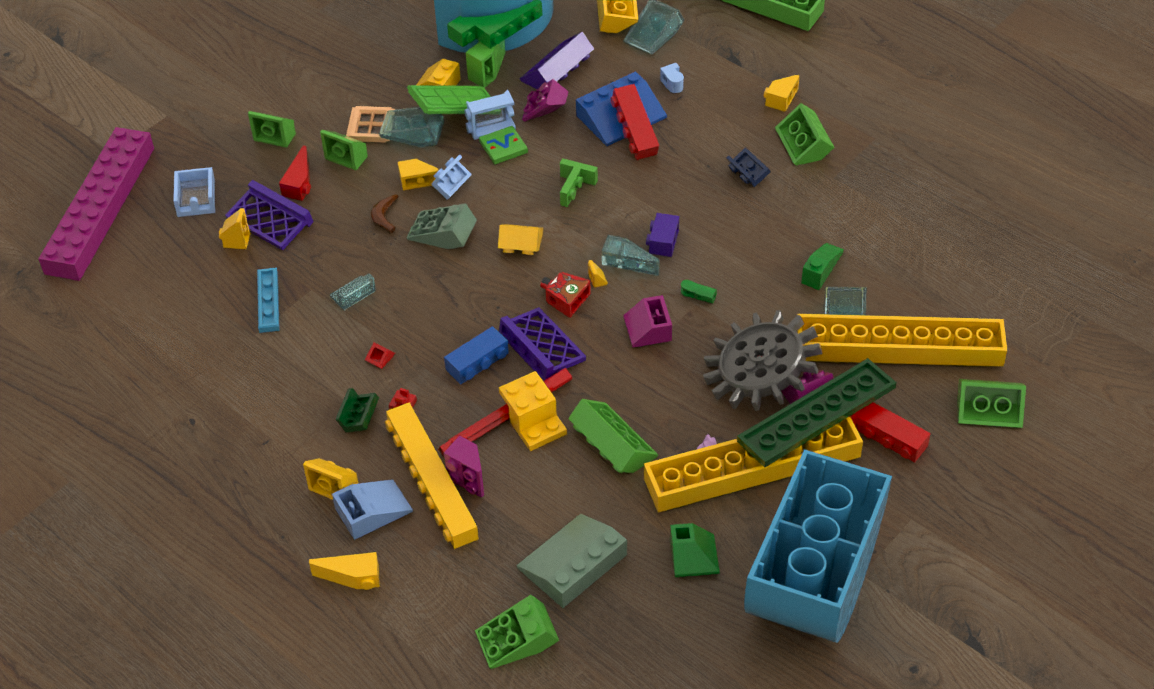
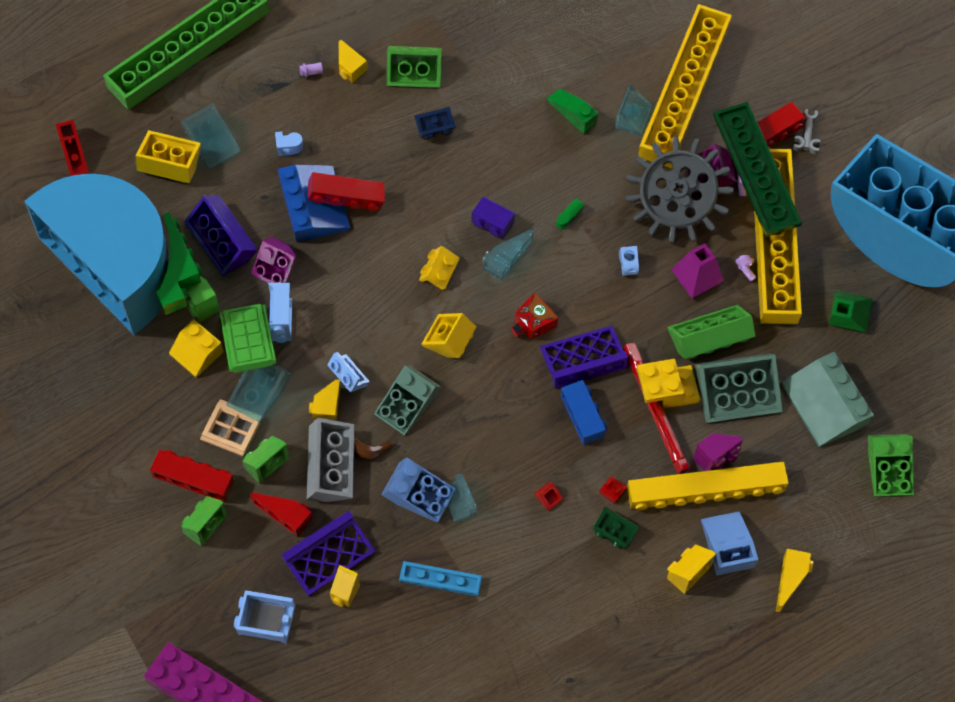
camera: 75 degrees left, 15 degrees up
(314, 111) = (192, 475): none -> red brick
(349, 255) = (418, 490): none -> medium blue slope
(356, 187) = (330, 461): none -> light grey slope
(503, 145) = (313, 316): bright green tile -> none
(556, 474) = (739, 387): none -> sand green slope
(576, 175) = (387, 263): bright green bracket -> none
(591, 212) = (439, 267): none -> yellow bracket
(596, 275) = (519, 289): yellow slope -> none
(648, 322) = (597, 263): magenta slope -> none
(665, 348) = (629, 260): none -> light blue leg
(679, 408) = (698, 271): none -> magenta slope
(758, 69) = (311, 69): none -> lavender pin
(896, 470) = (806, 142): none -> light grey bar
(991, 403) = (766, 49): bright green slope -> none

